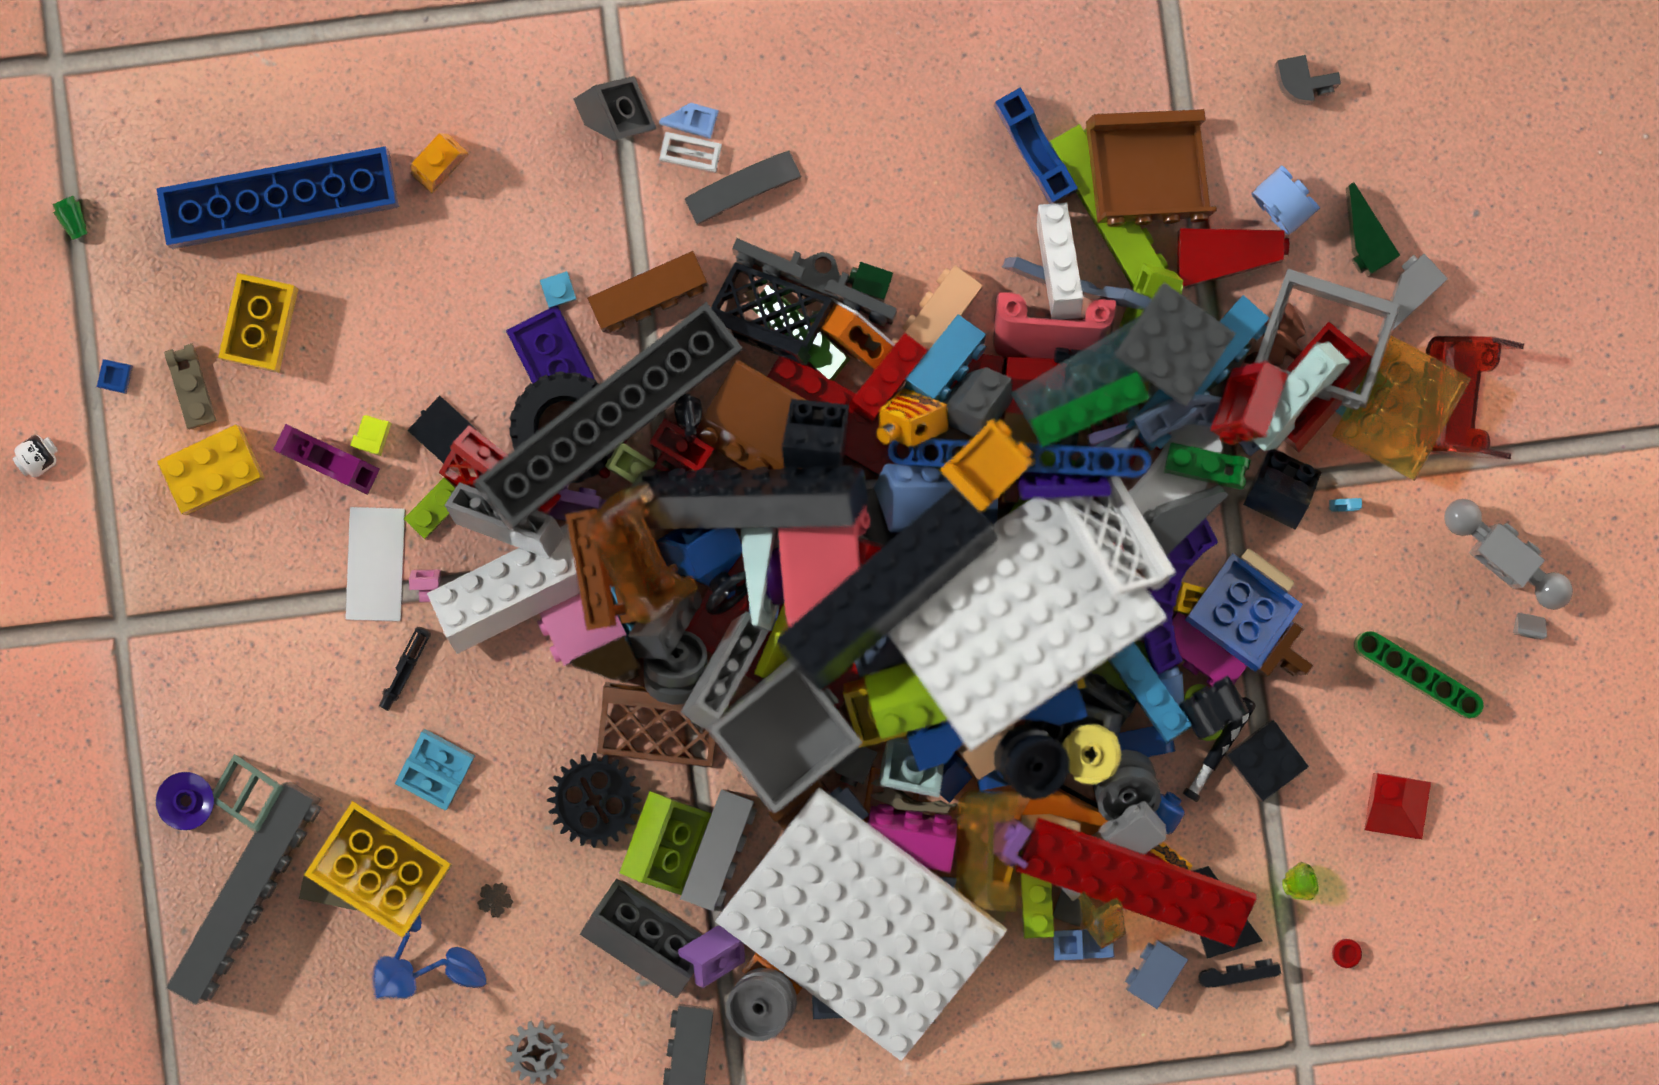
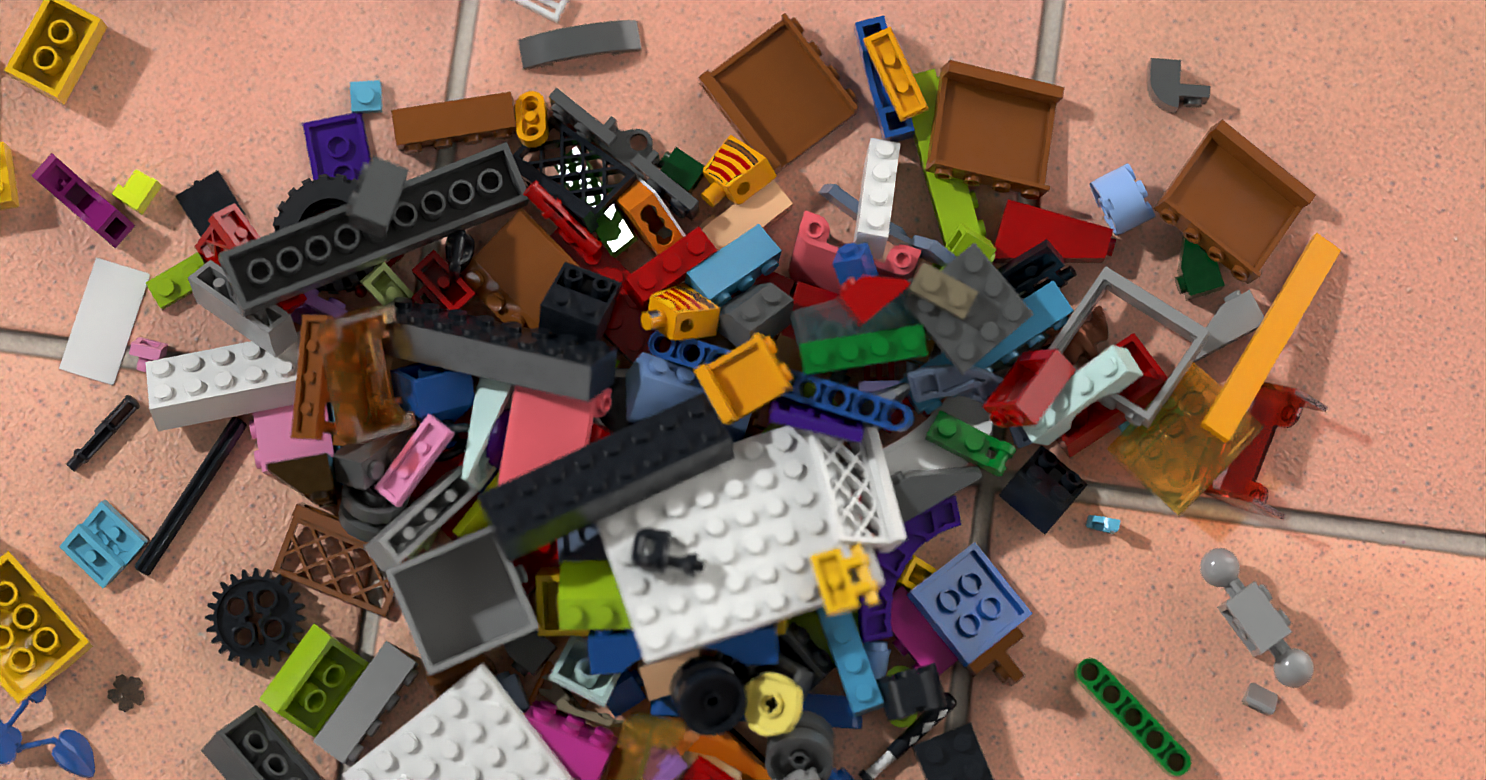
camera: 15 degrees right, 5 degrees down
(502, 704) = (190, 496): none -> black axle
(607, 389) = (377, 199): none -> dark grey brick
(704, 620) = (414, 460): none -> bright pink tile
(720, 272) = (529, 121): none -> light orange plate
(749, 344) = (560, 216): none -> red pin
(922, 271) = (735, 173): none -> light orange torso
(941, 185) = (780, 94): none -> dark orange panel
(957, 651) = (660, 559): none -> black piece
(1046, 140) = (895, 74): none -> light orange tile
(1060, 334) = (854, 261): none -> blue brick
(1081, 359) = (868, 295): none -> red slope
(1122, 630) = (835, 583): none -> yellow plate
(1148, 336) = (942, 291): none -> dark tan plate
(1225, 281) = (1035, 265): none -> black plate
(1267, 569) = (1005, 568): tan tile -> none
(1388, 175) = (1233, 201): none -> dark orange panel
(1455, 293) = (1270, 338): none -> light orange tile

